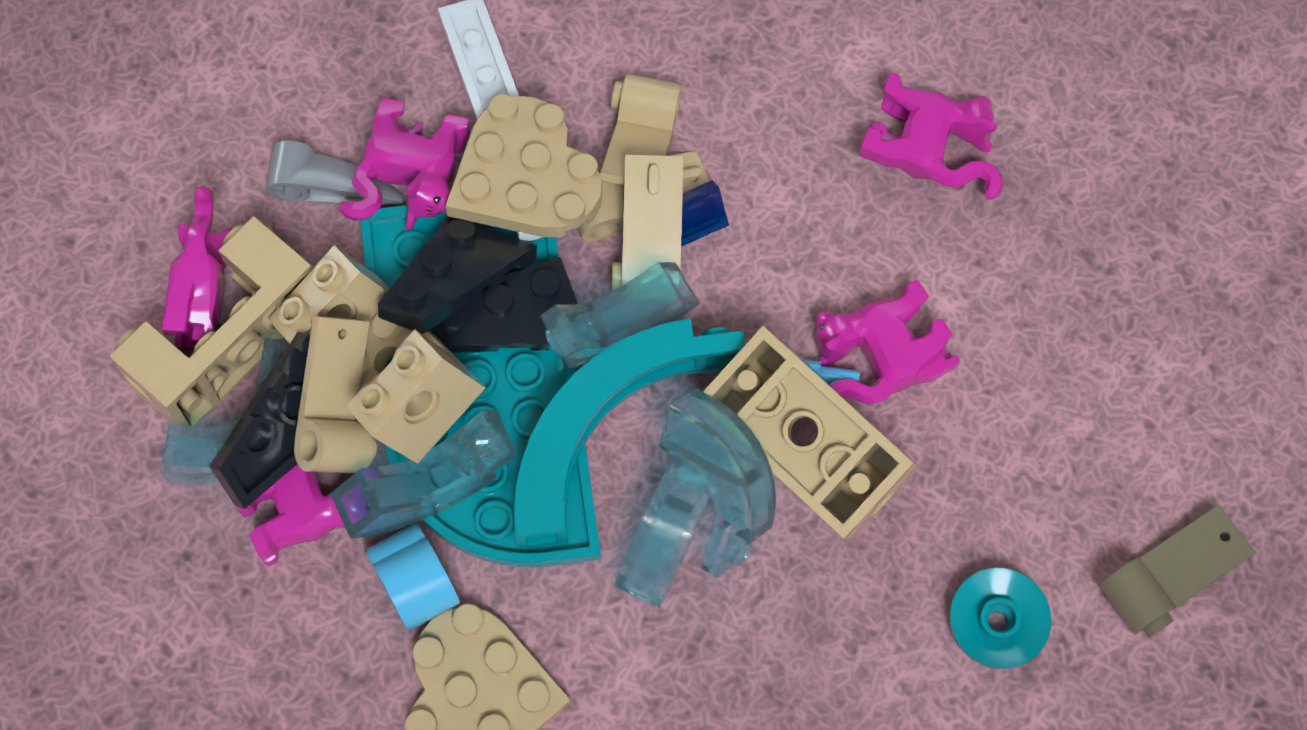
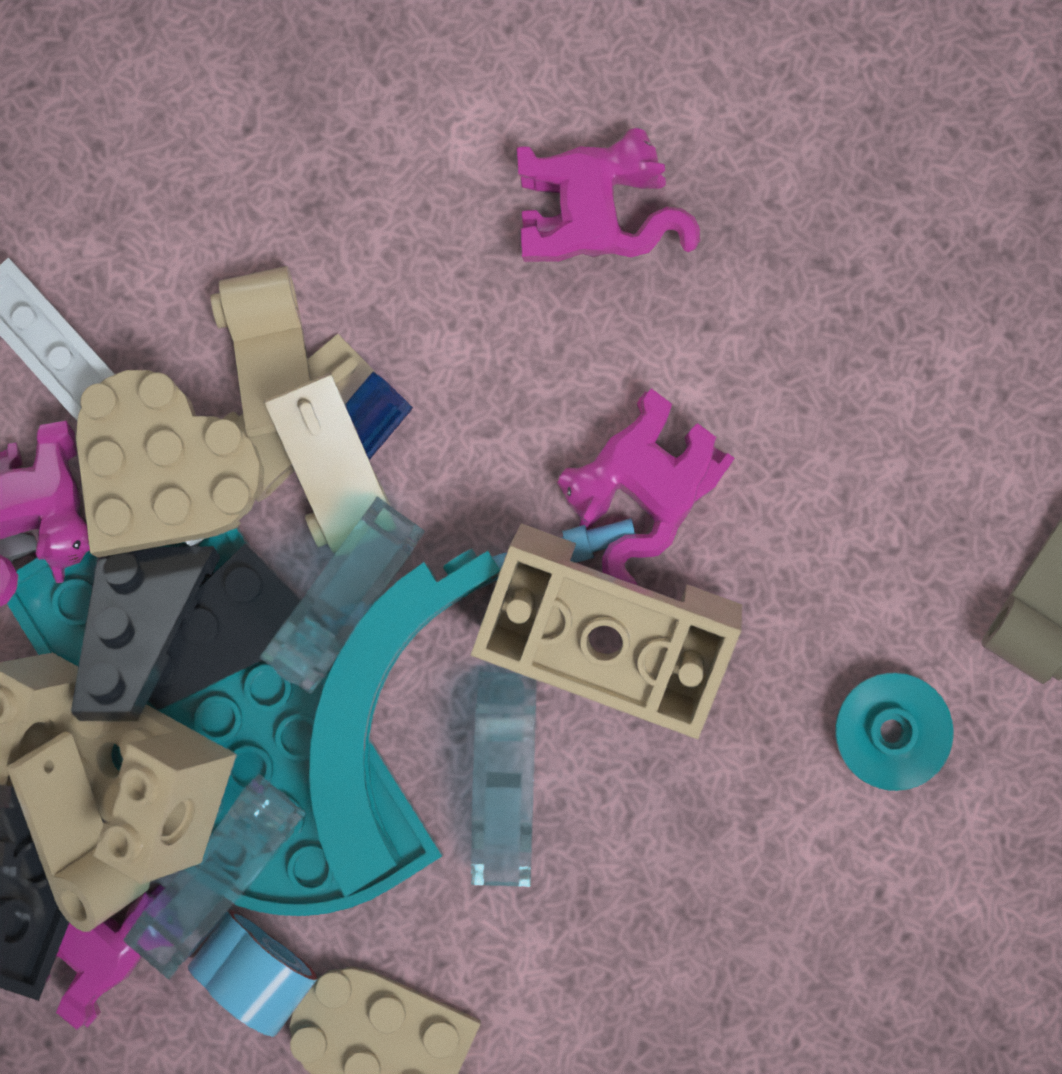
camera: 20 degrees left, 15 degrees up
(734, 468) = (542, 713): clear light blue arch -> none

